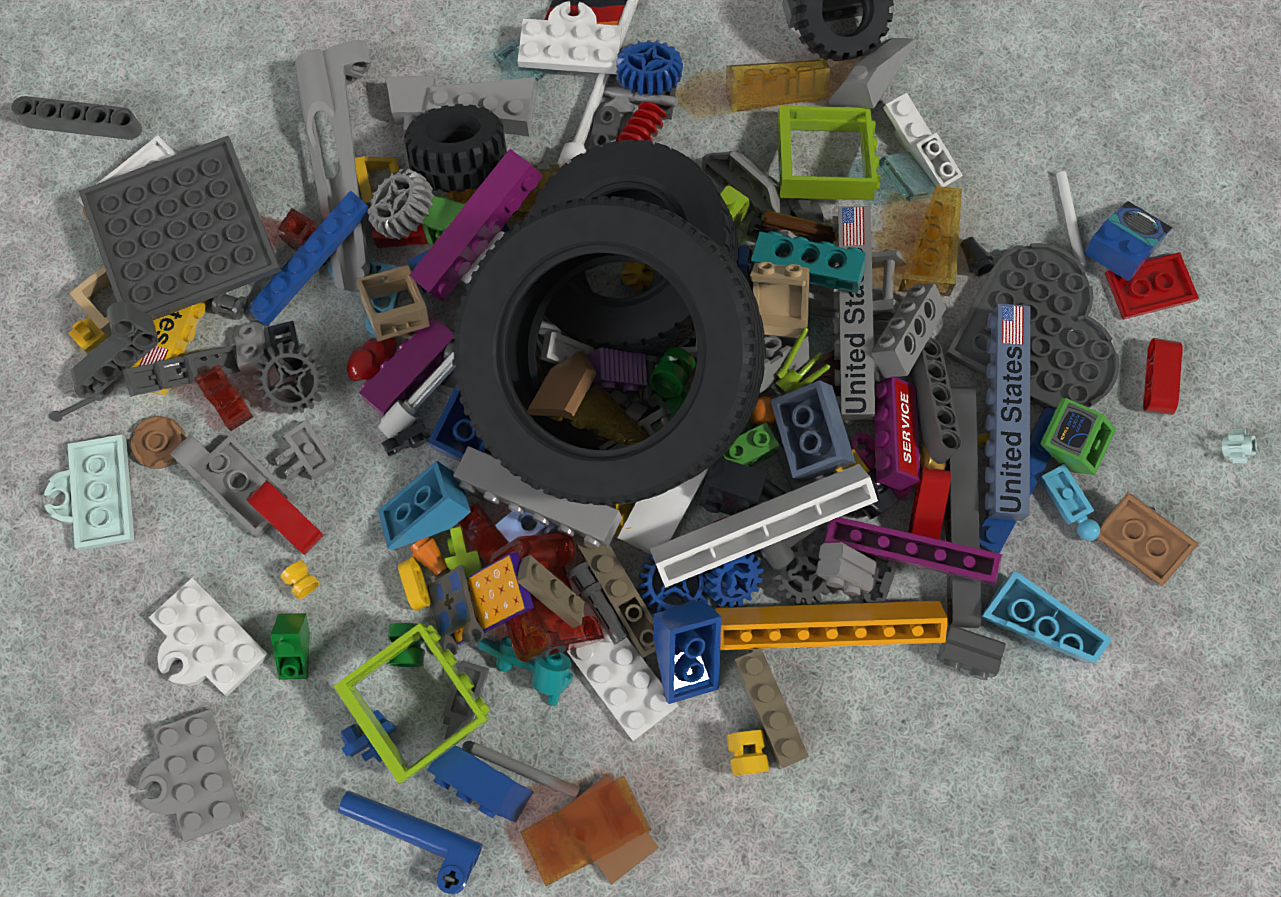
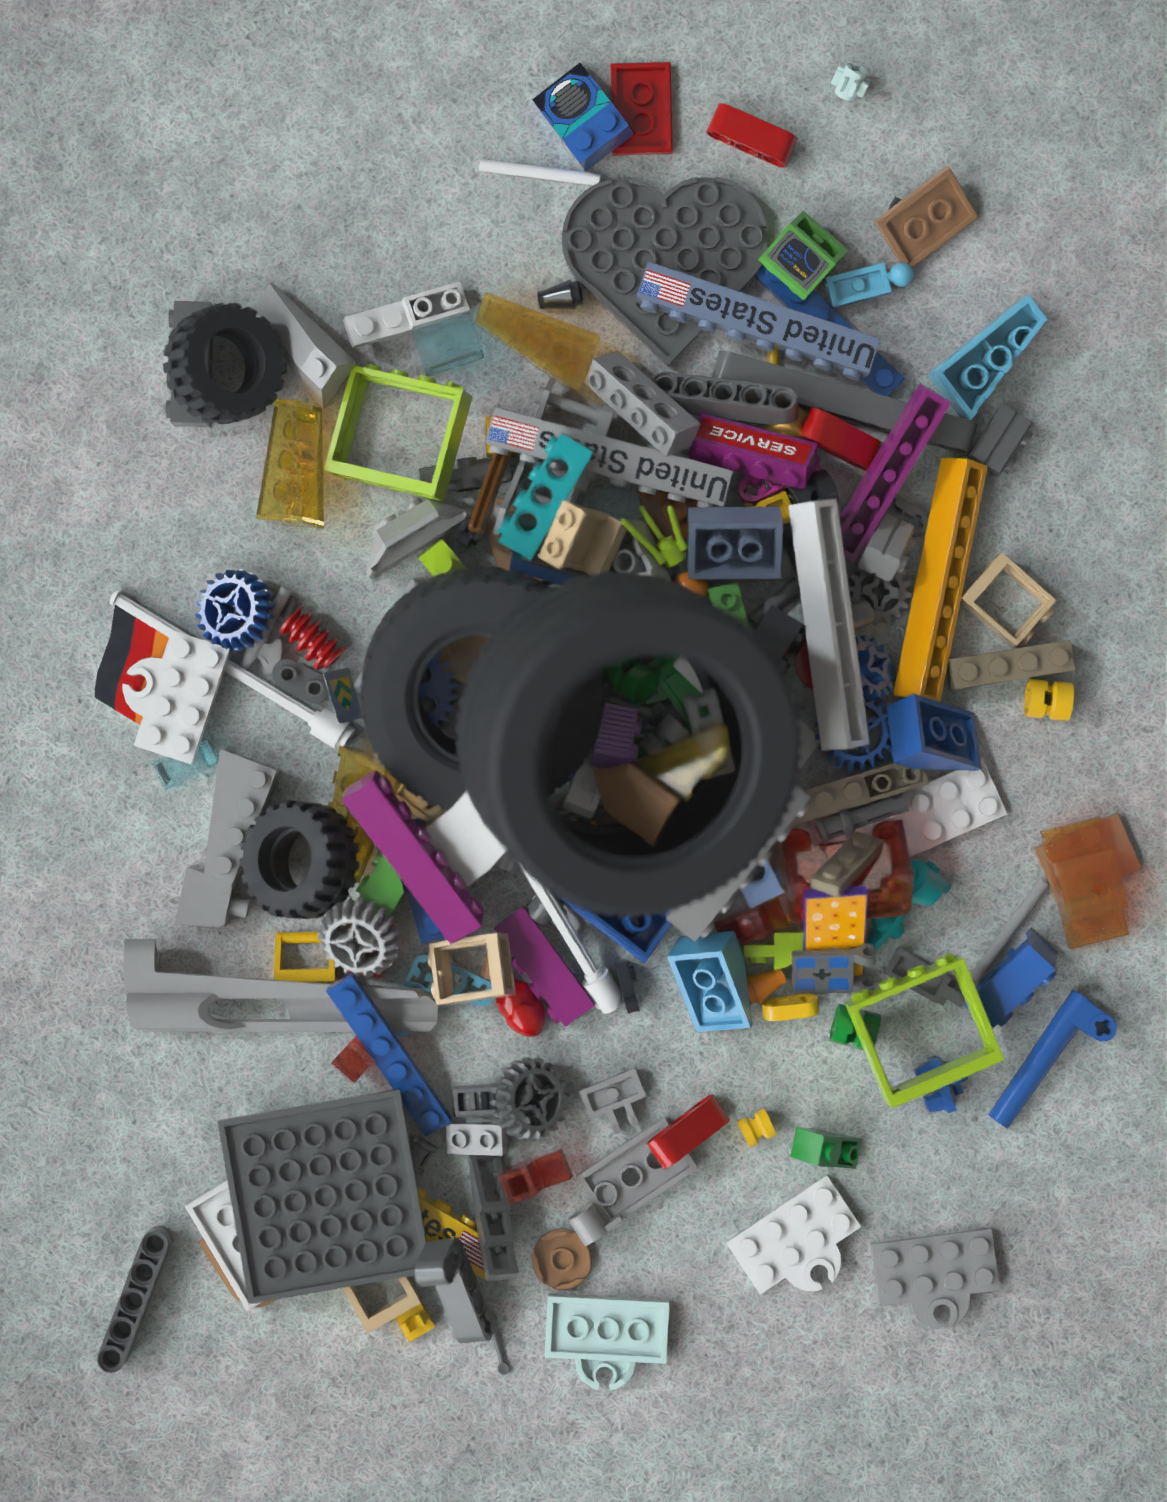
camera: 80 degrees left, 15 degrees up
(842, 668) = (1041, 613): none -> tan window

